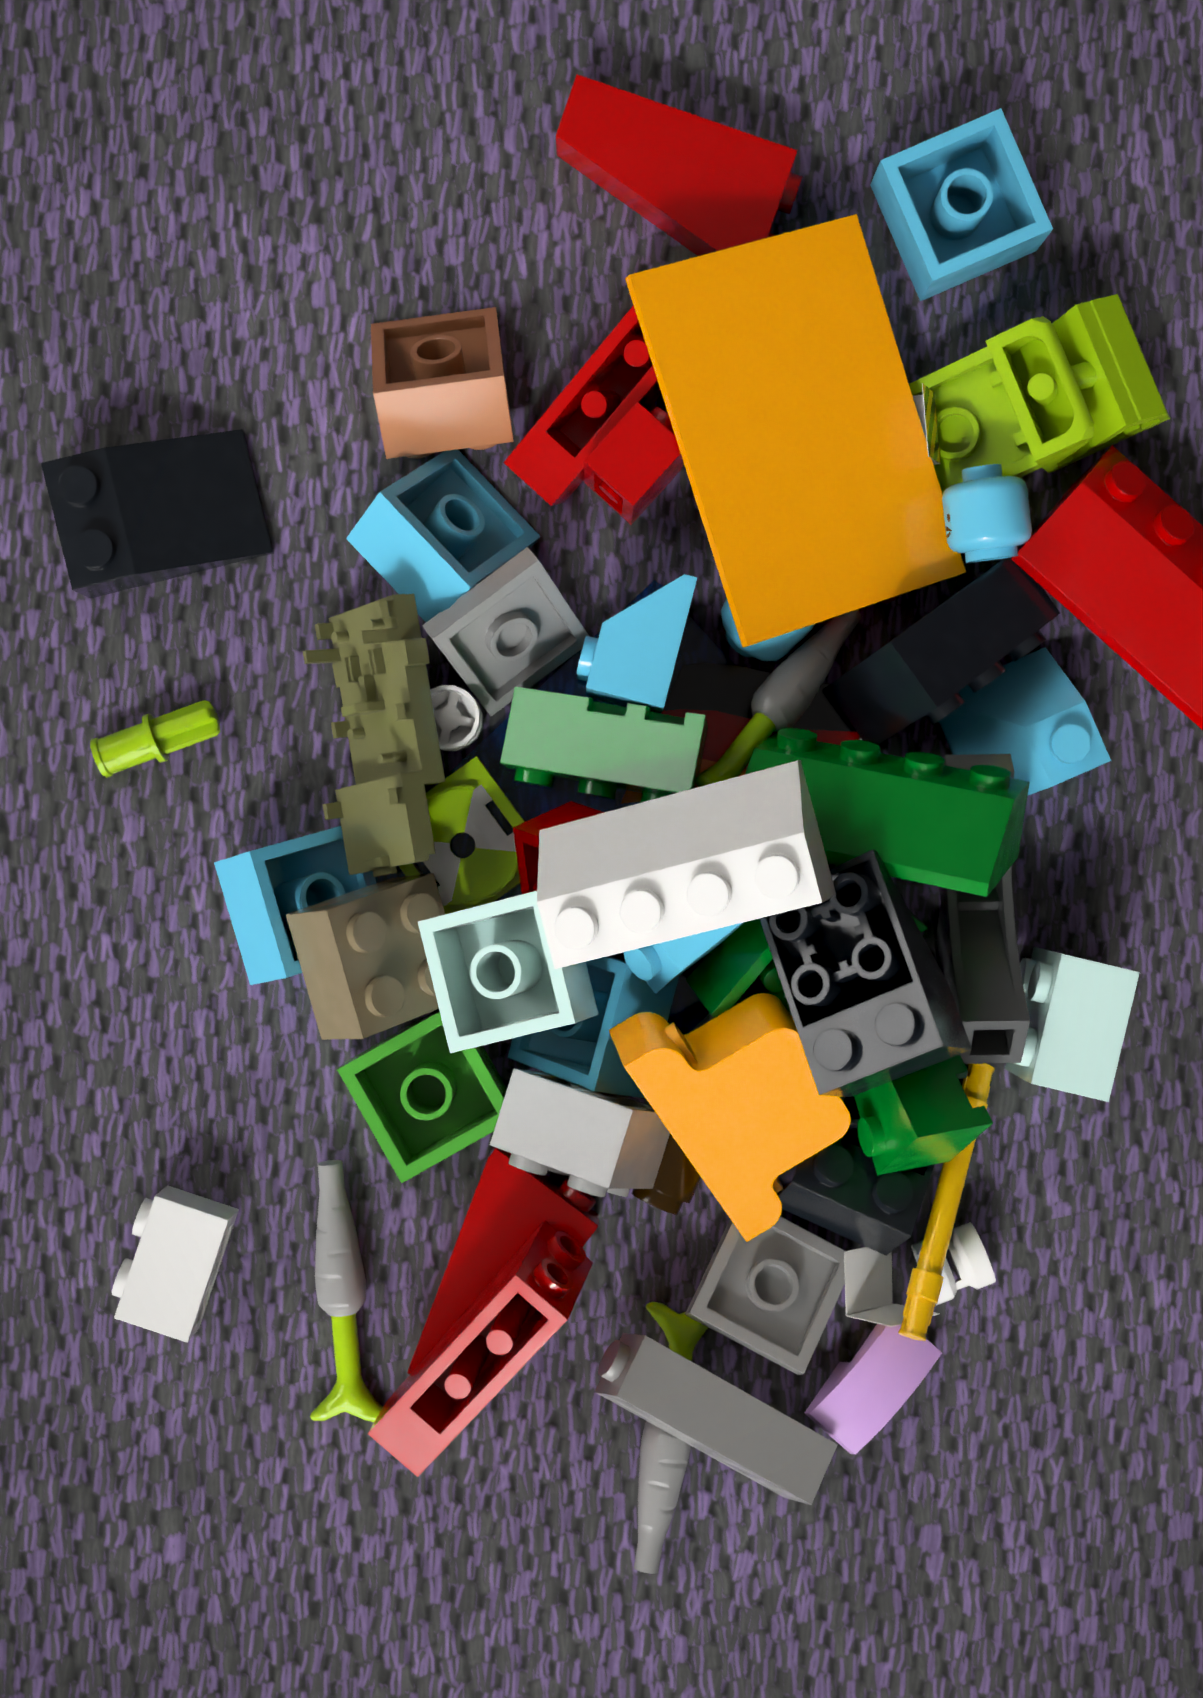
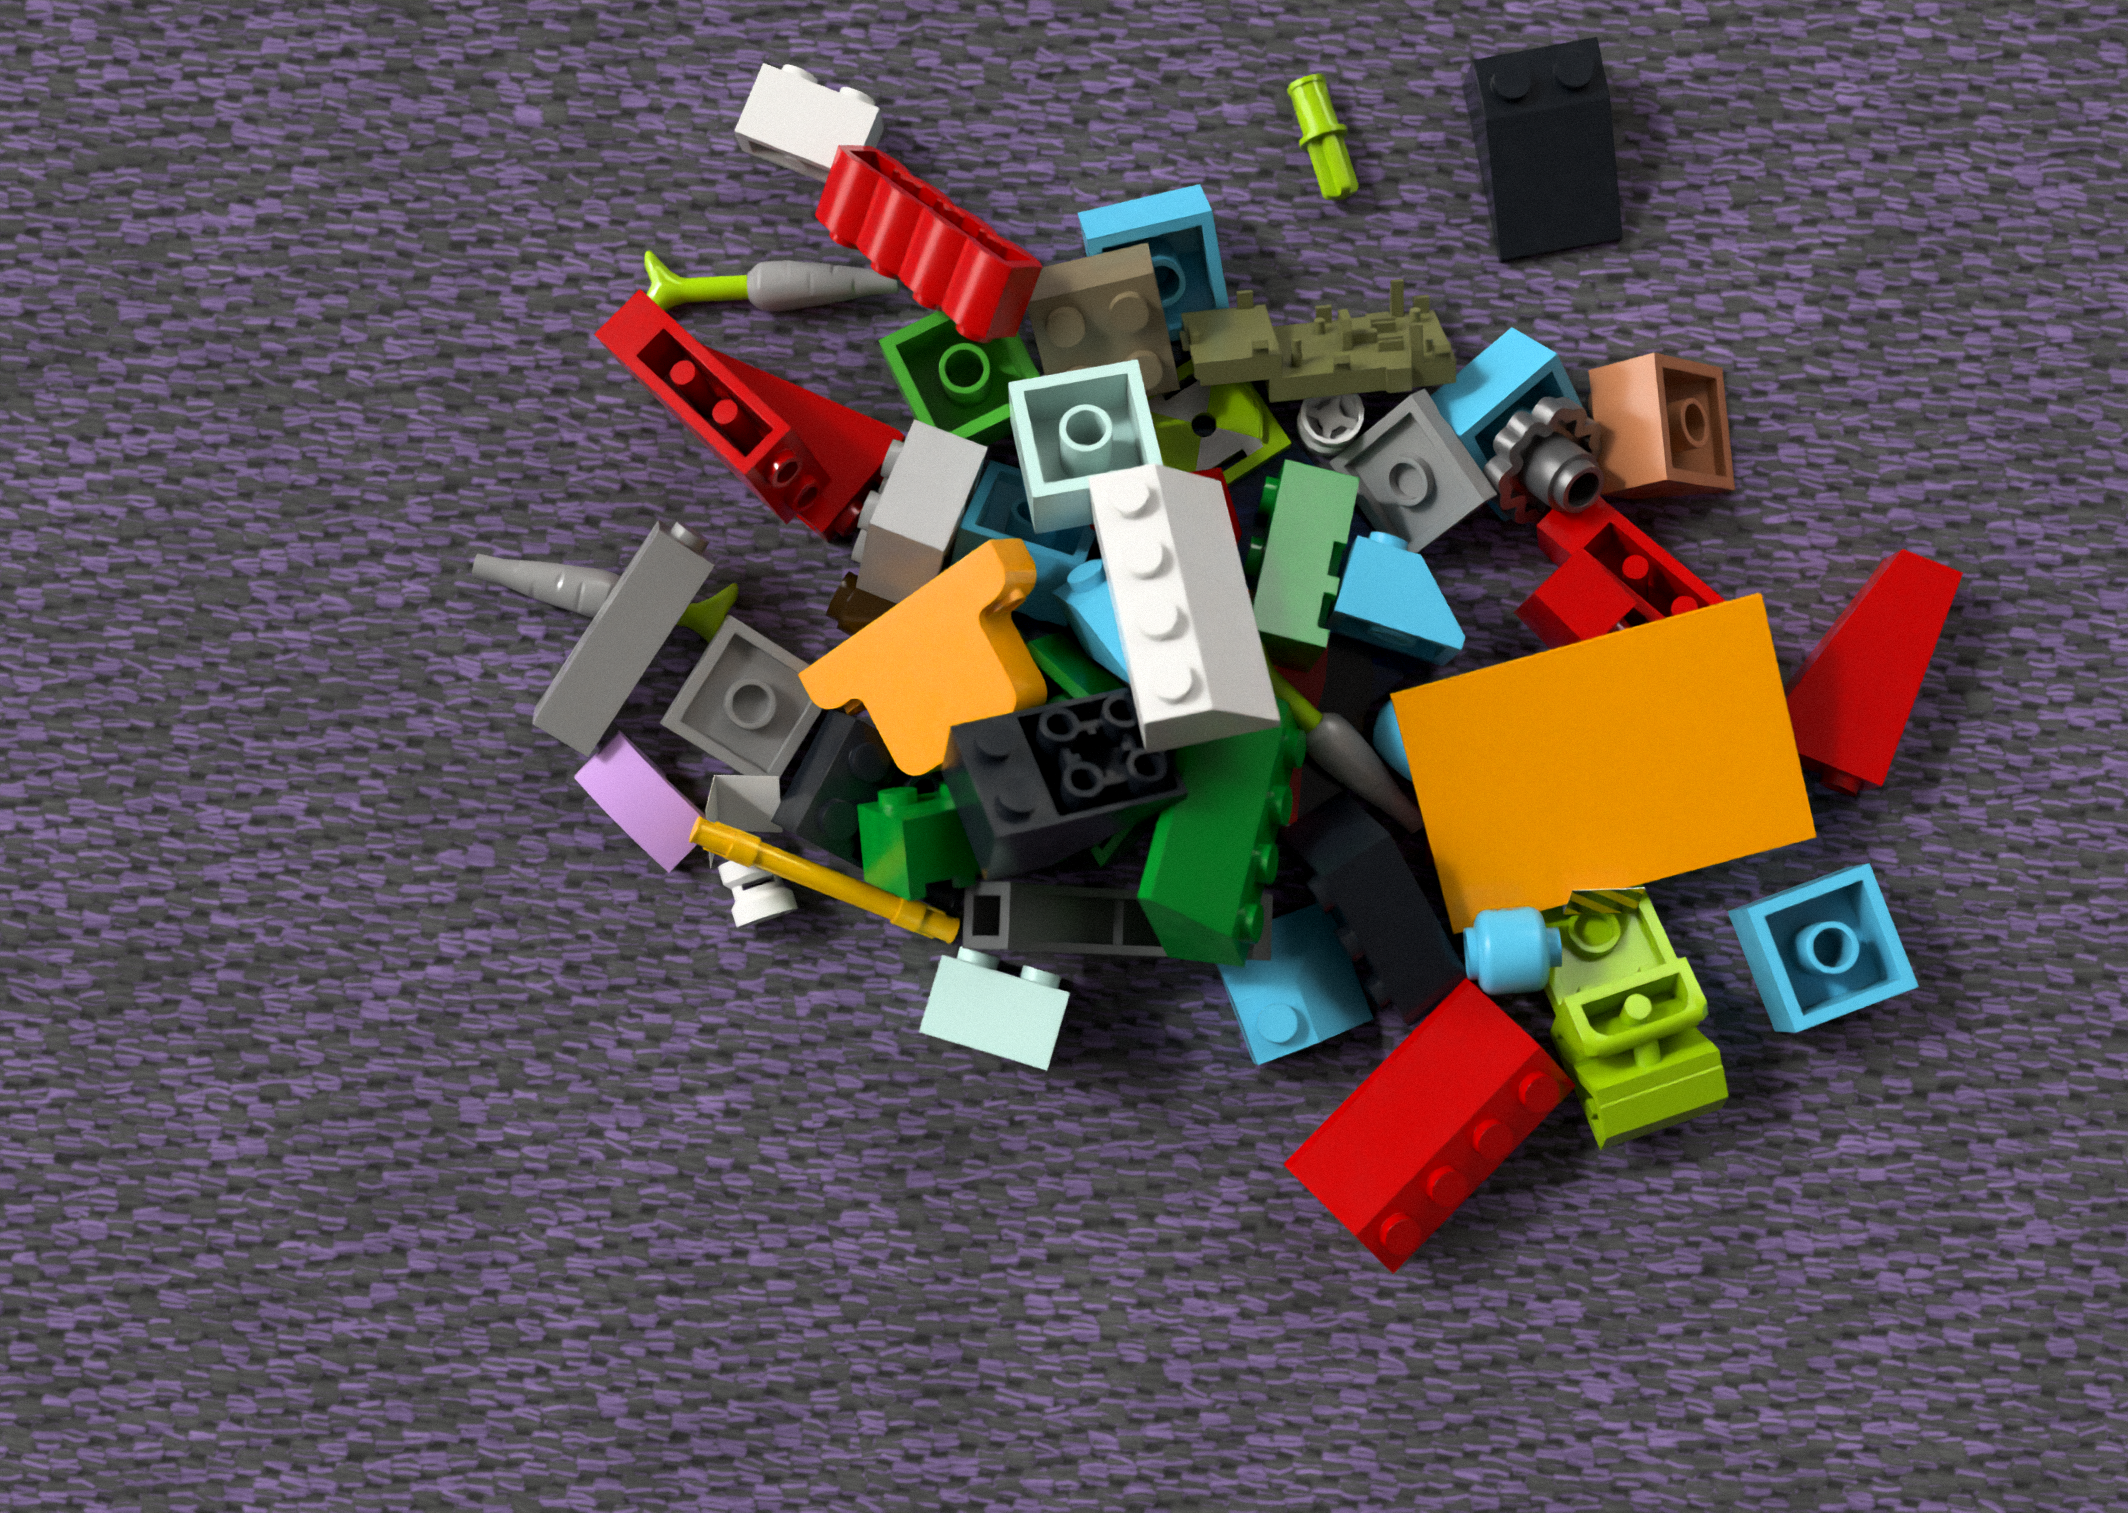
camera: 95 degrees right, 5 degrees down
(301, 1140) = (927, 243): none -> red brick
(489, 497) = (1546, 461): none -> flat silver plant

